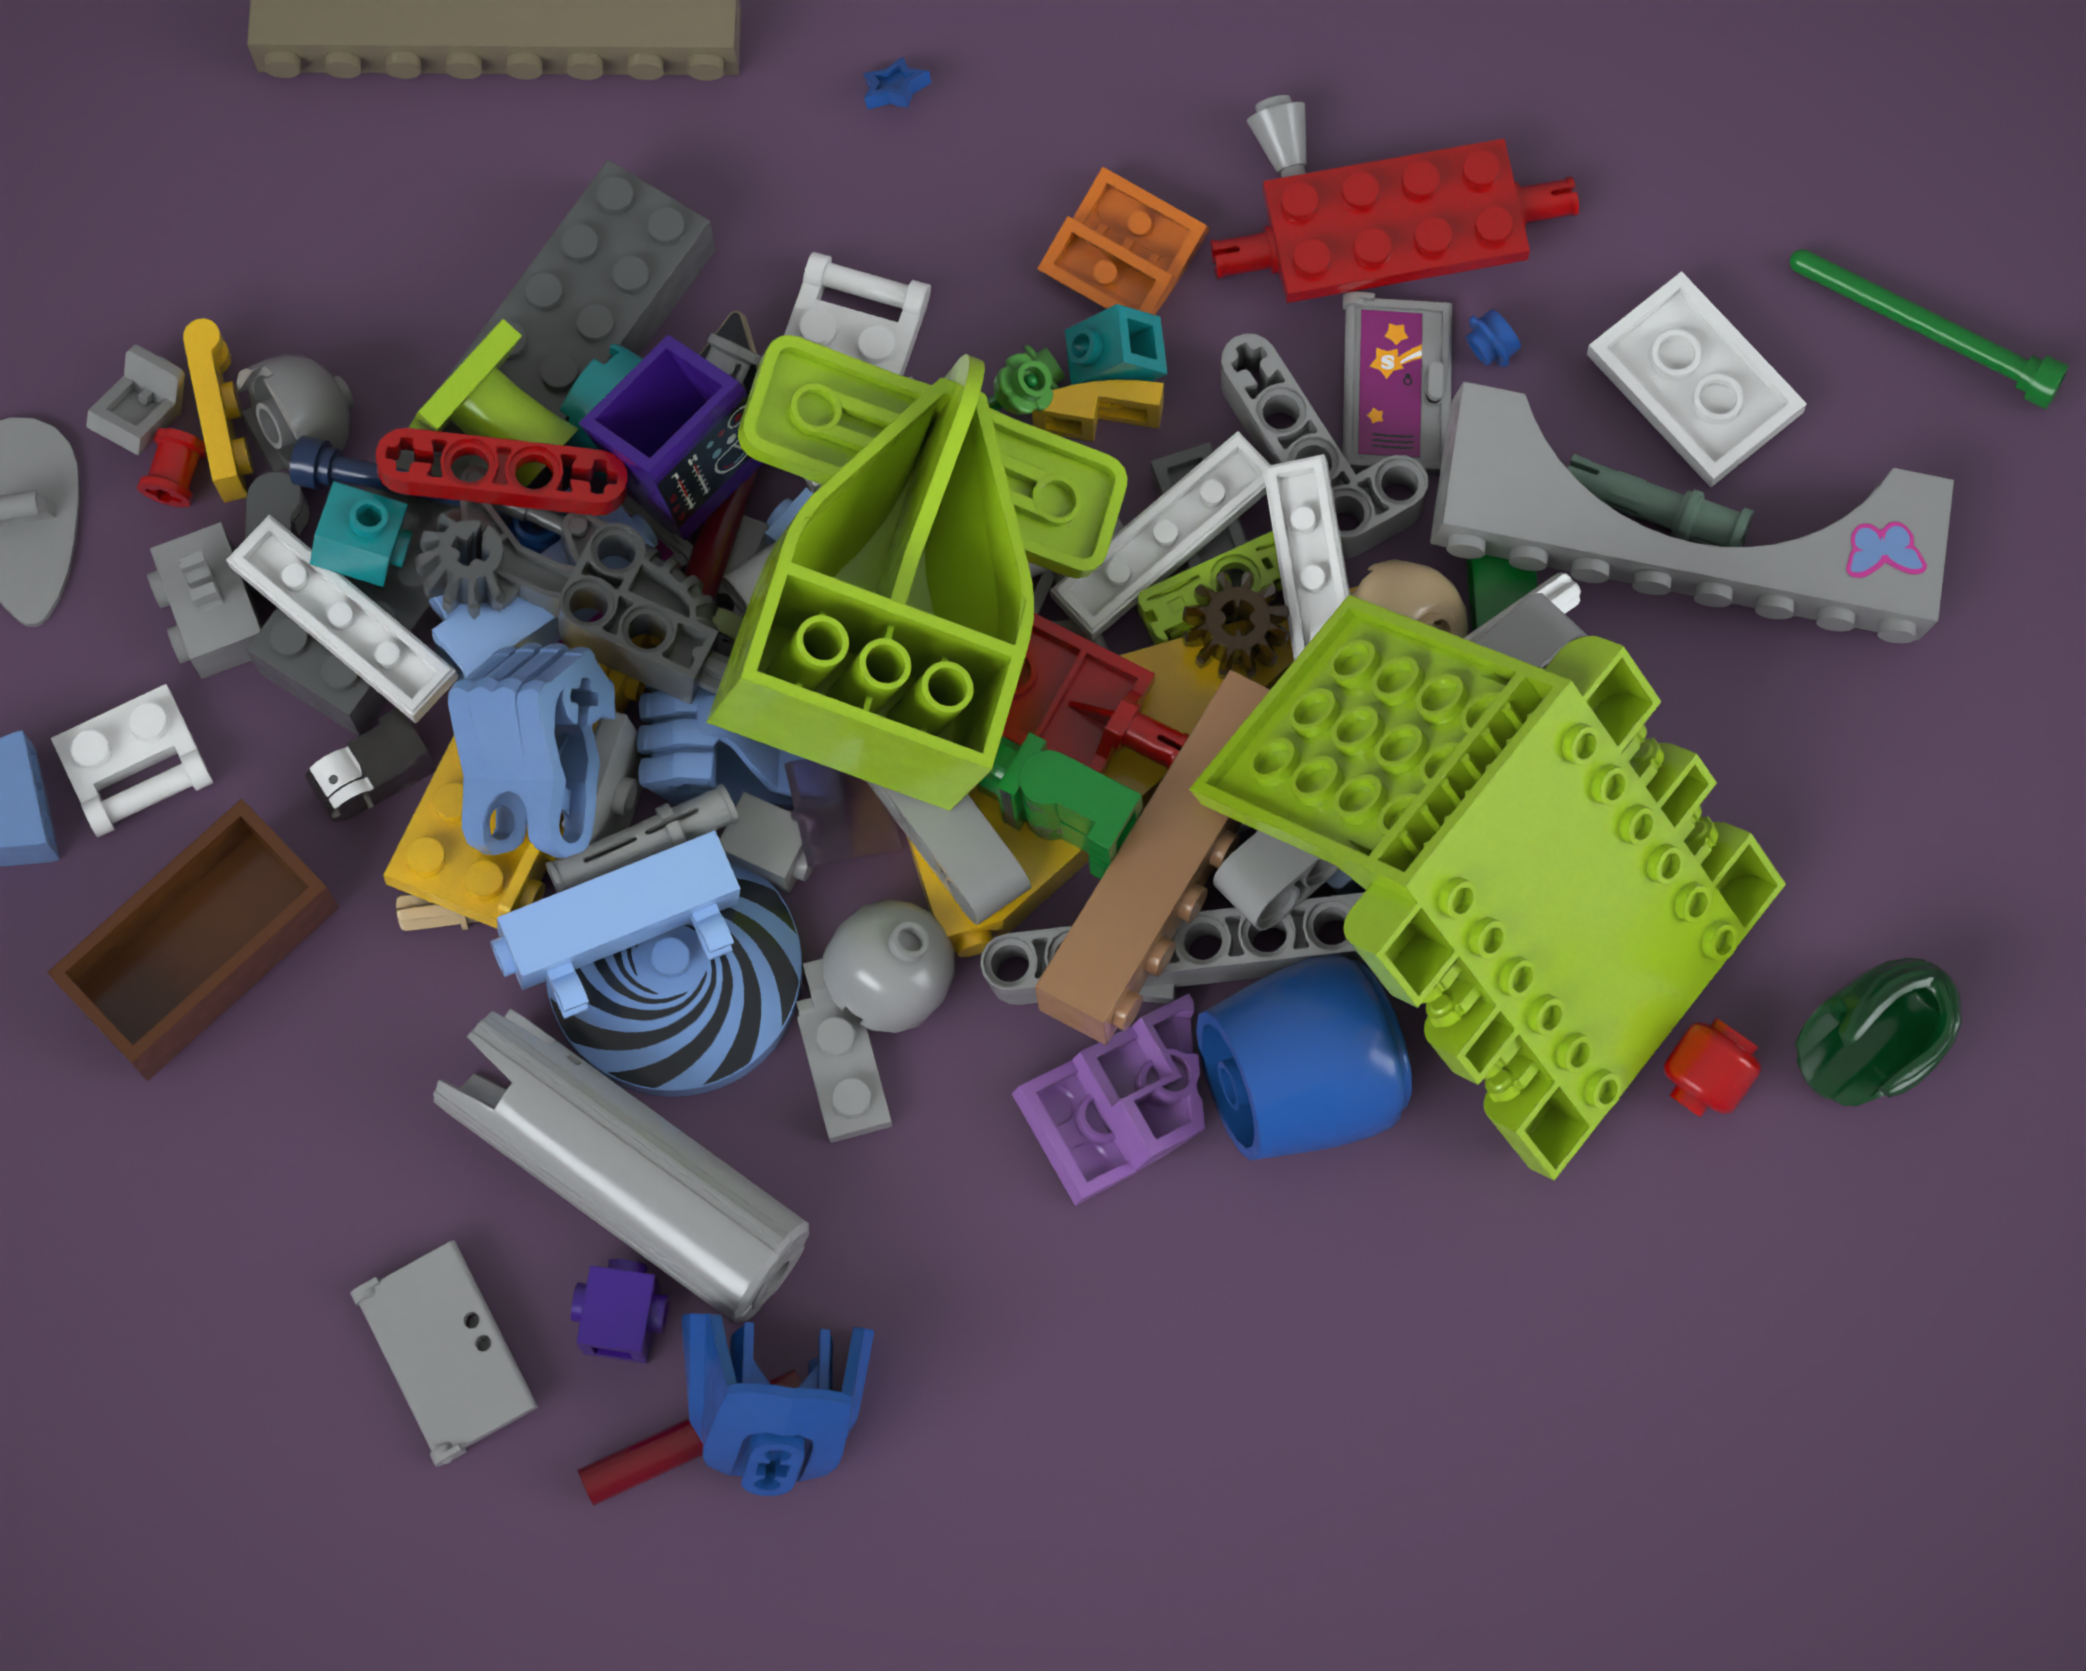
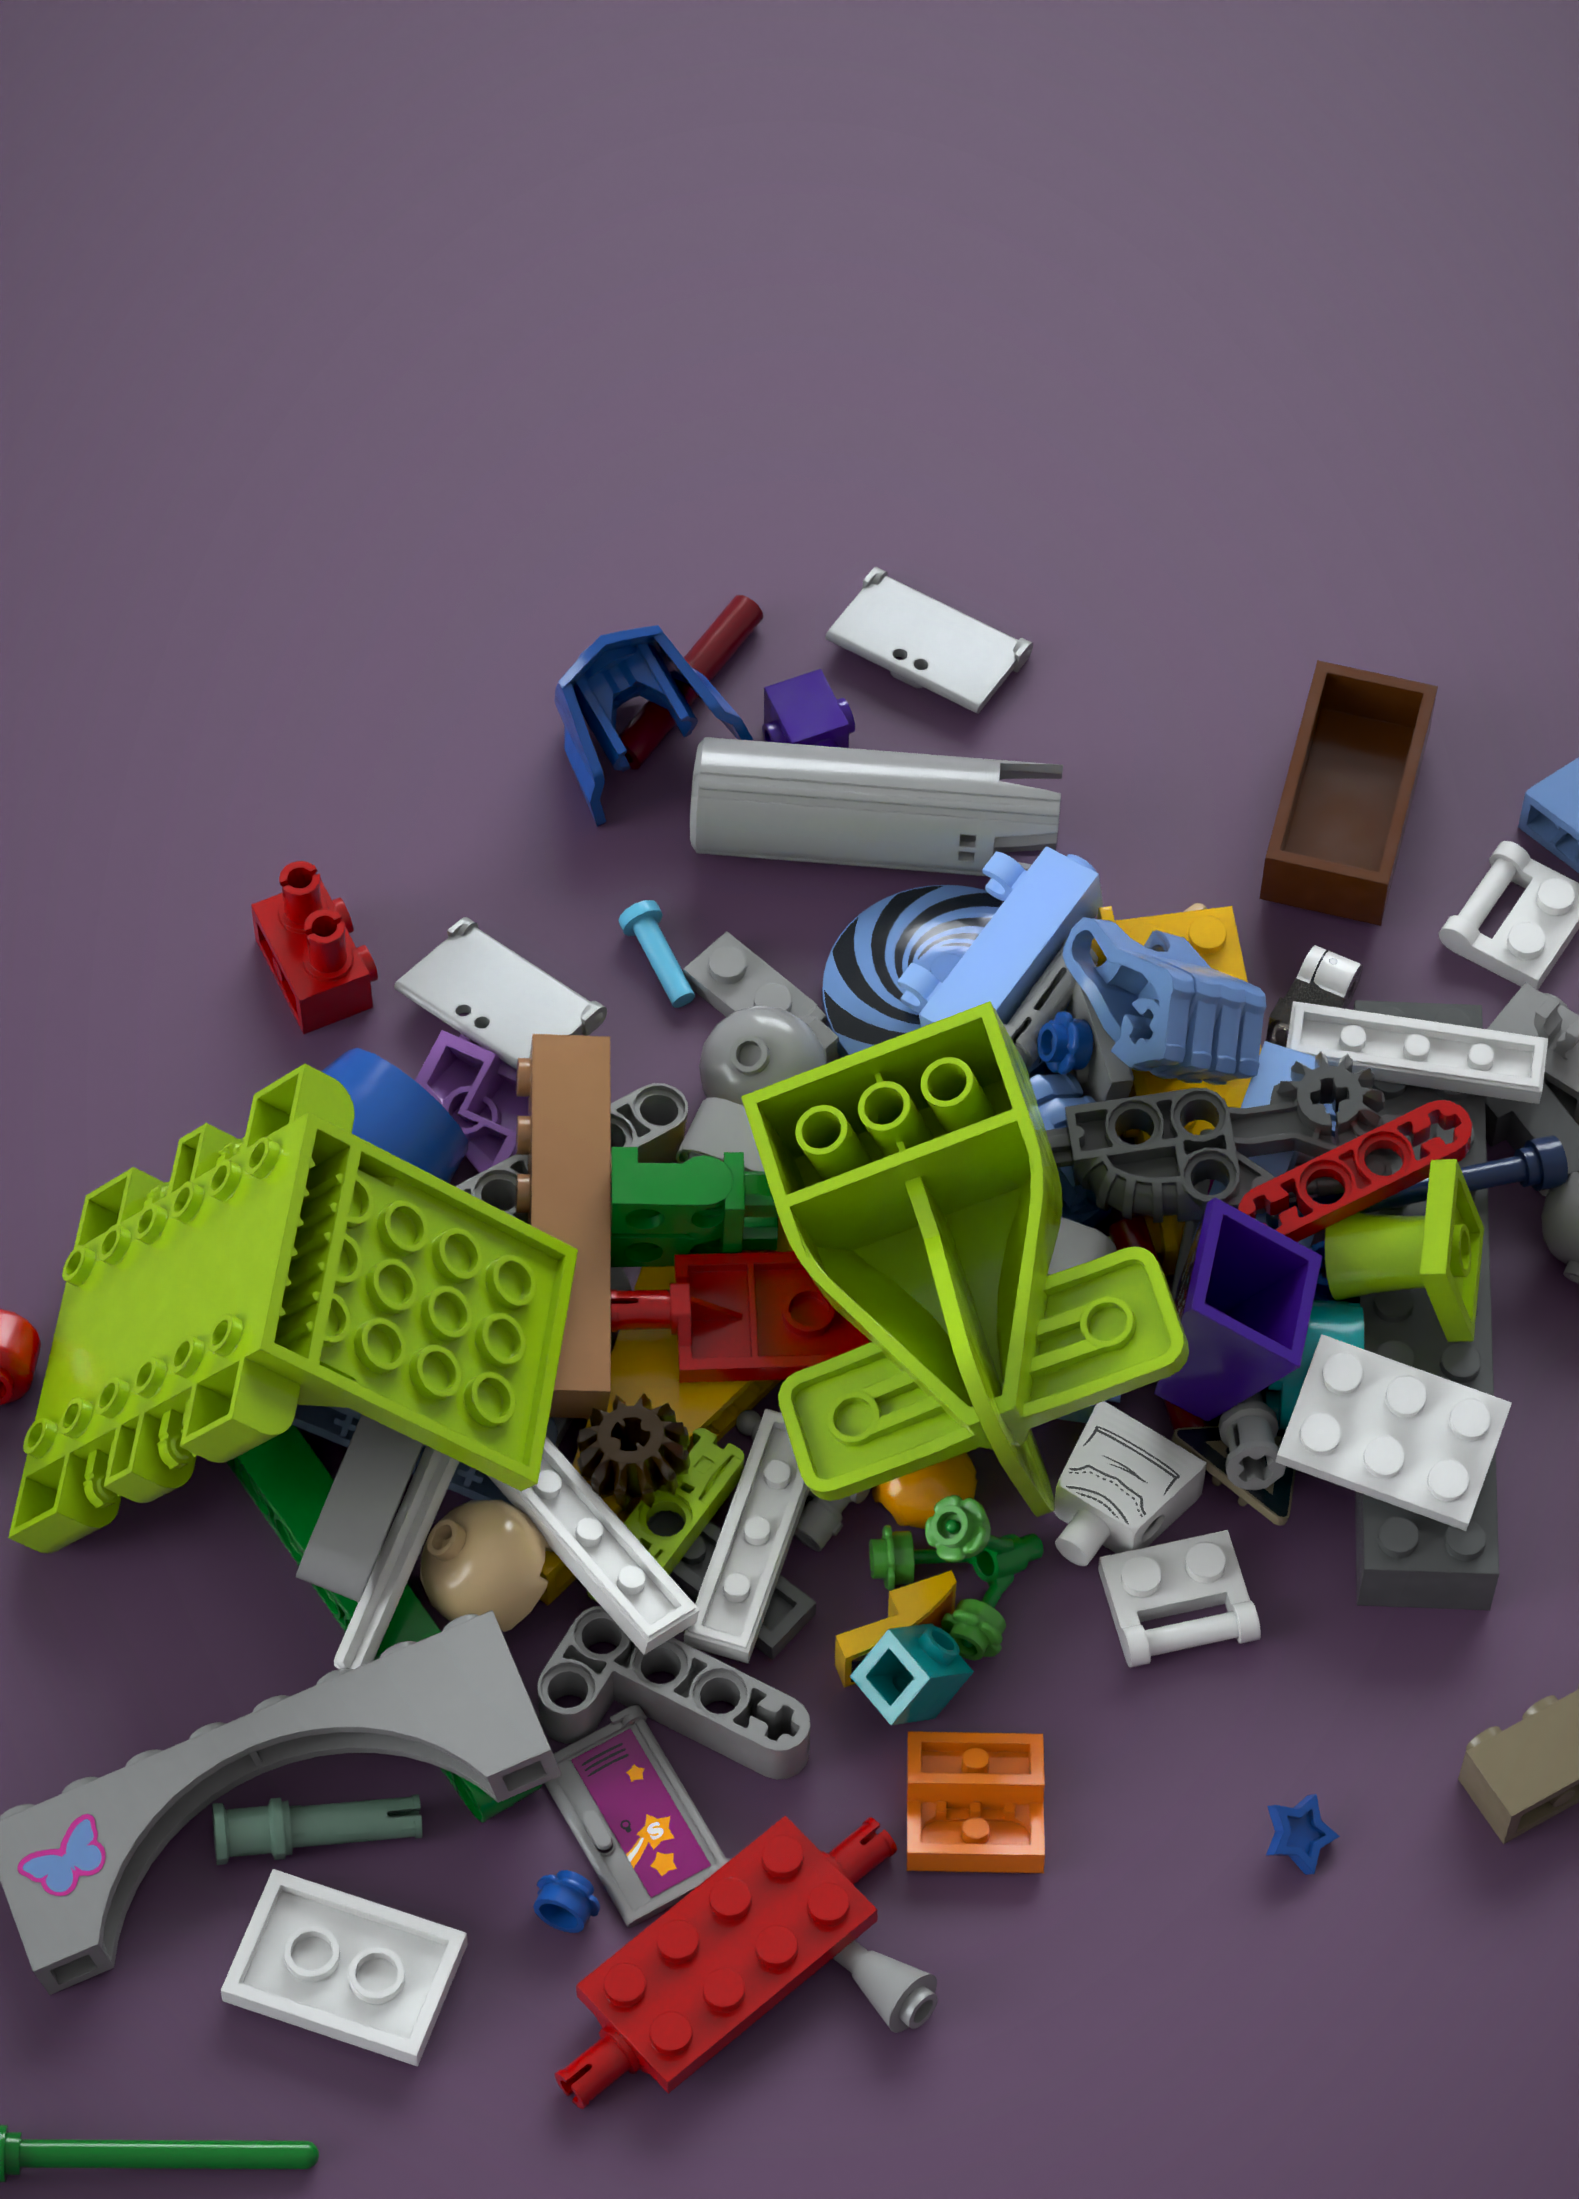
camera: 145 degrees right, 15 degrees down
(361, 534) = (1449, 1078): teal brick -> none
(614, 281) = (1393, 1432): none -> white plate
(632, 791) = (1065, 1043): none -> blue plate
(897, 1192) = (643, 920): none -> medium azure piece
(1079, 1193) = (499, 990): none -> door
(1216, 1322) = (312, 951): none -> red brick

